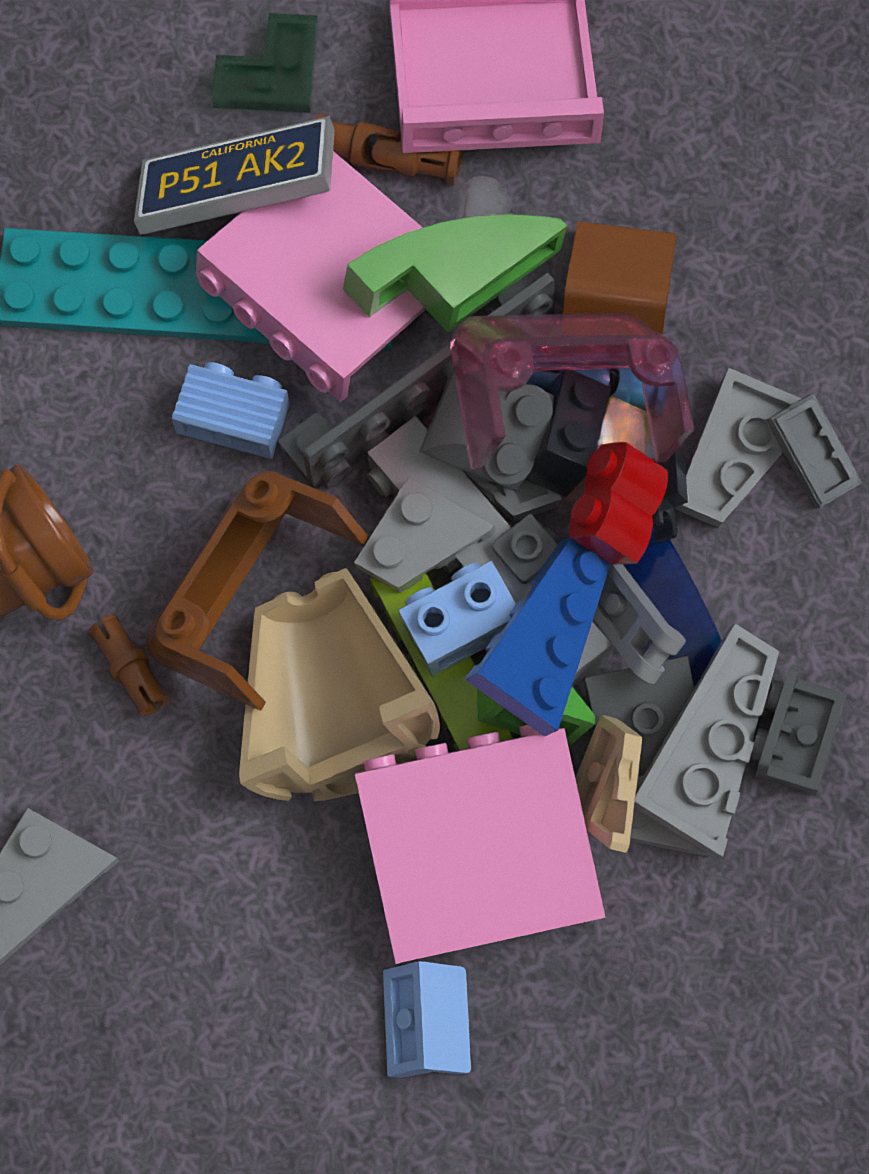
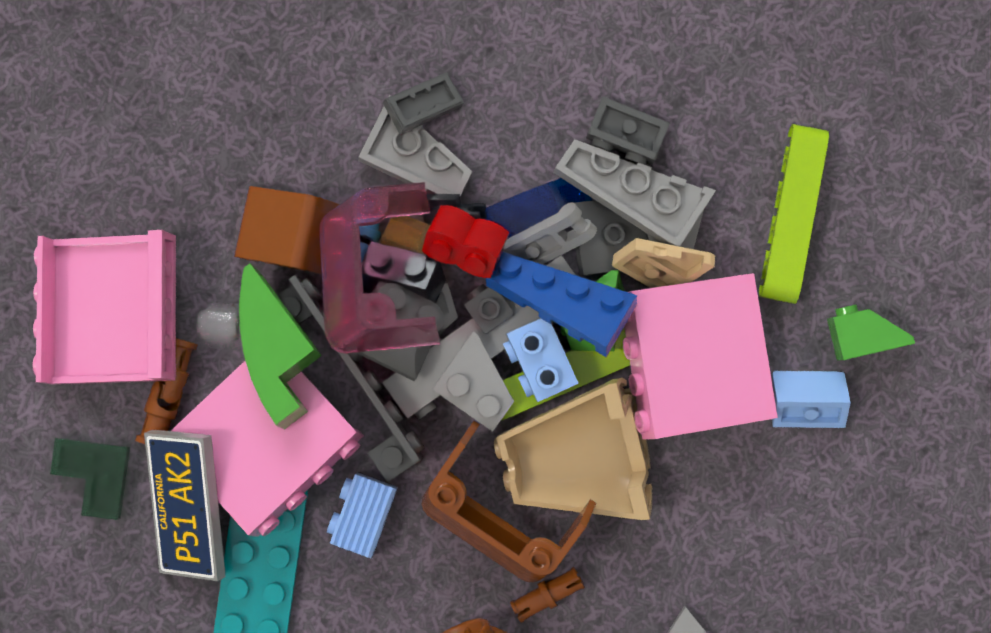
camera: 90 degrees left, 15 degrees up
(528, 1091) = (864, 333): none -> bright green slope
(700, 976) = (795, 215): none -> lime beam

